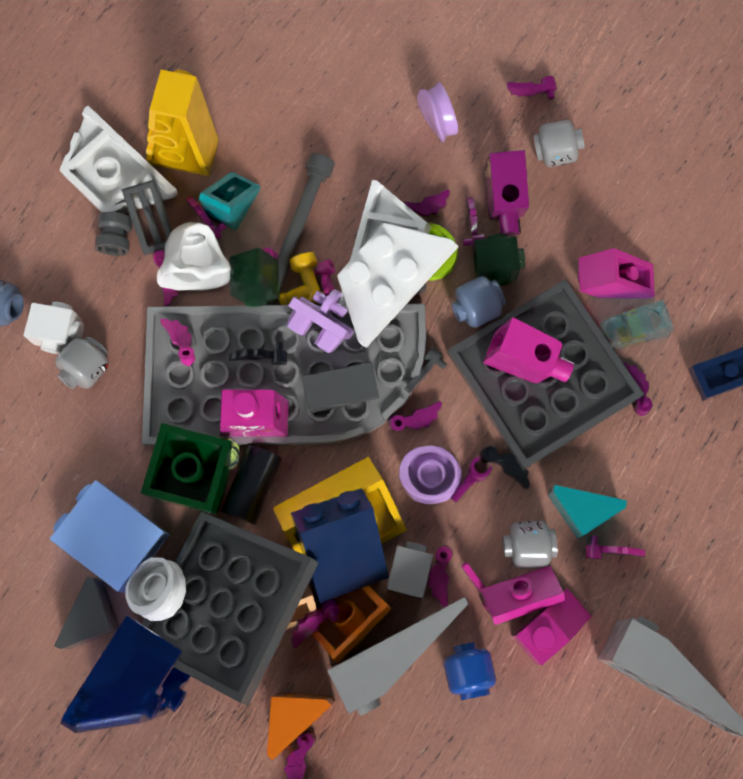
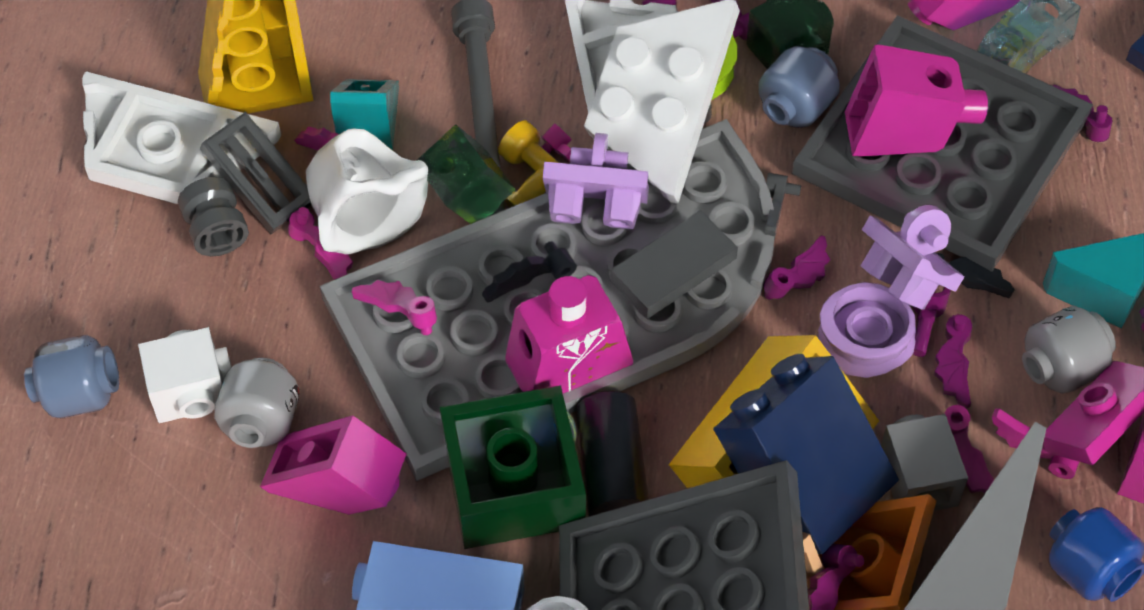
camera: 30 degrees left, 20 degrees down
(103, 422) = (336, 467): none -> dark pink slope
(466, 515) = (951, 361): none -> magenta piece
(475, 446) = (909, 256): none -> lavender hips

